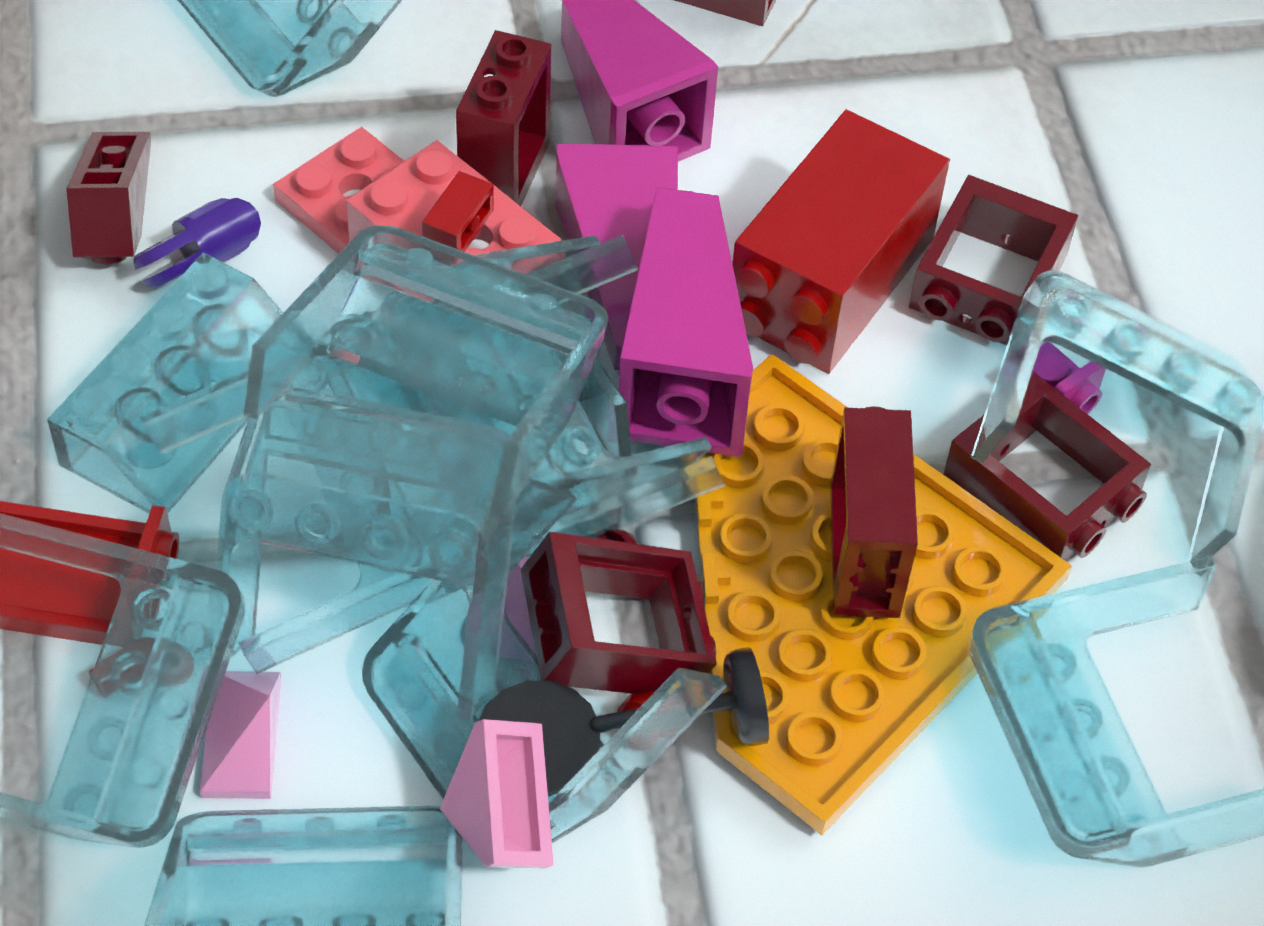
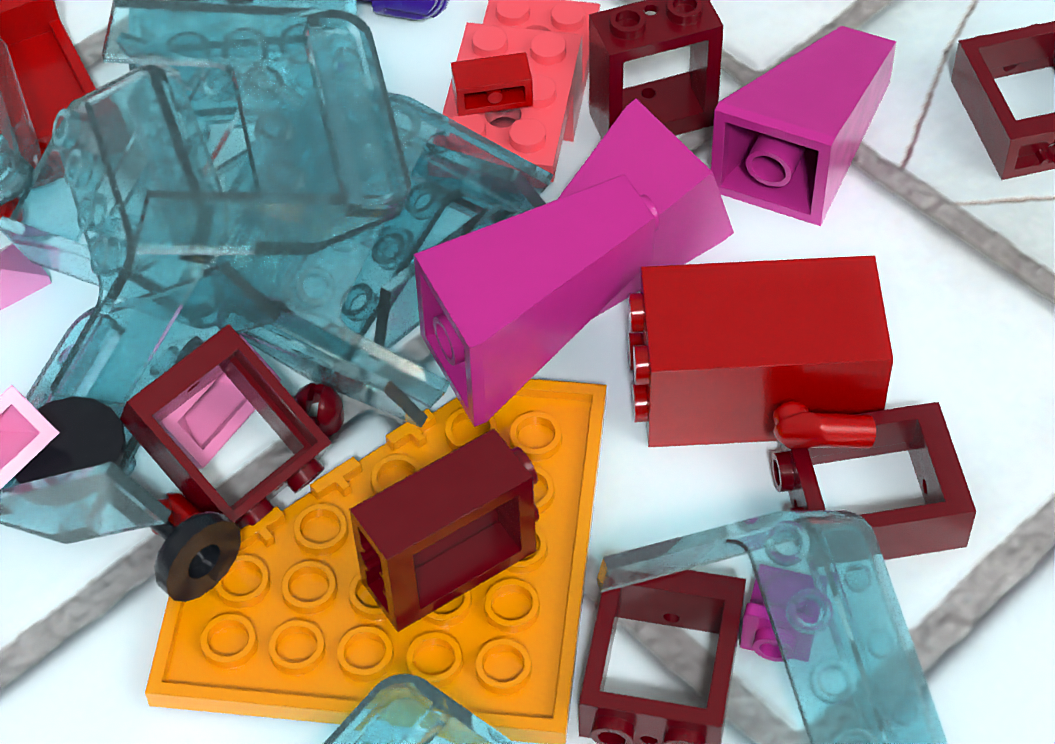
camera: 60 degrees right, 0 degrees up
(955, 247) = (804, 429): none -> red arm

